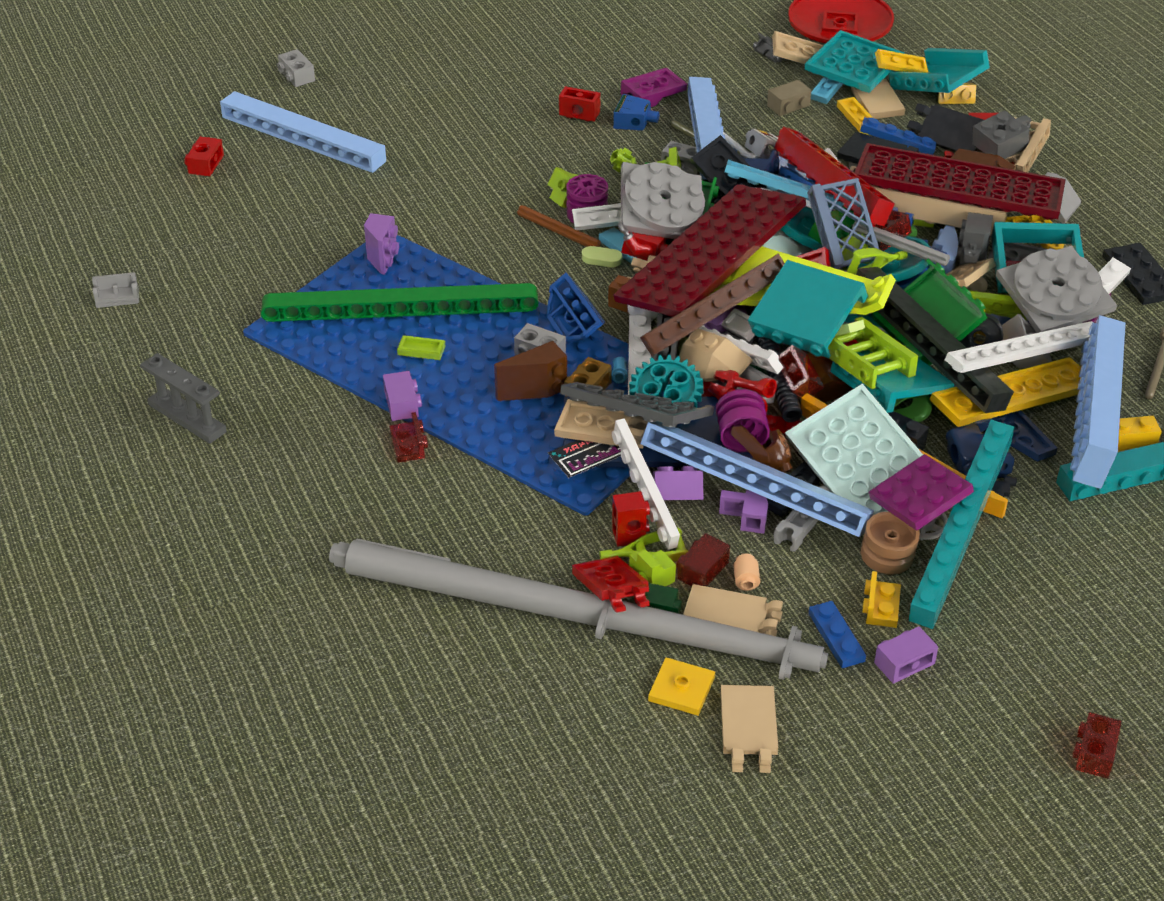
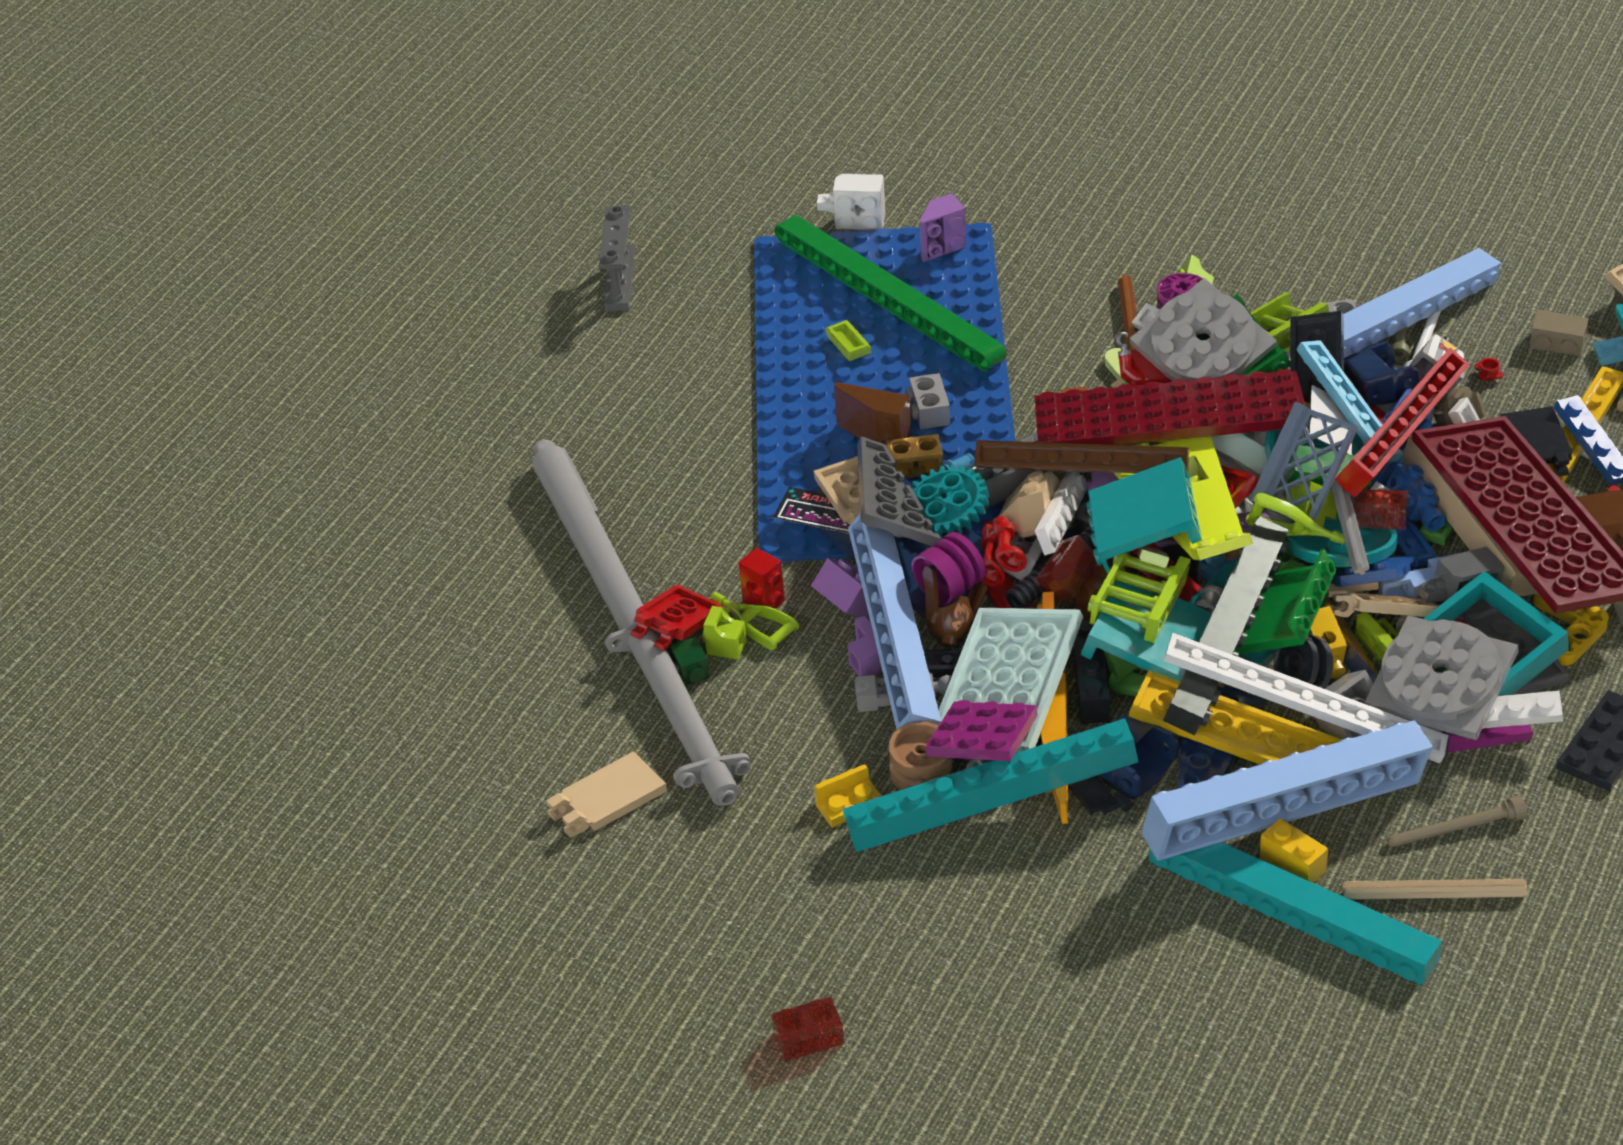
camera: 55 degrees right, 0 degrees up
(115, 290) = (716, 143): light grey hinge -> none
(204, 156) = (949, 67): red brick -> none
(290, 263) = (856, 202): none -> white hinge
(296, 68) = (1148, 28): light grey brick -> none
(303, 131) = (1061, 94): light blue brick -> none
(401, 395) = (765, 365): medium lavender brick -> none
(408, 440) = (729, 407): clear red bracket -> none
(571, 310) = (1001, 391): blue wedge -> none
(579, 104) = (1333, 212): red brick -> none
(620, 156) = (1284, 285): lime gear -> none
(634, 113) = (1374, 253): blue torso -> none
(641, 475) = (808, 555): white plate -> none
(654, 85) = (1438, 237): magenta piece -> none
(681, 686) = (612, 730): yellow plate -> none
(703, 561) = (769, 659): clear red brick -> none
(734, 609) = (729, 711): tan tile -> none
(746, 572) = (786, 692): light nougat brick -> none
(837, 634) = (776, 791): blue plate -> none
(906, 654) = (790, 845): medium lavender brick -> none

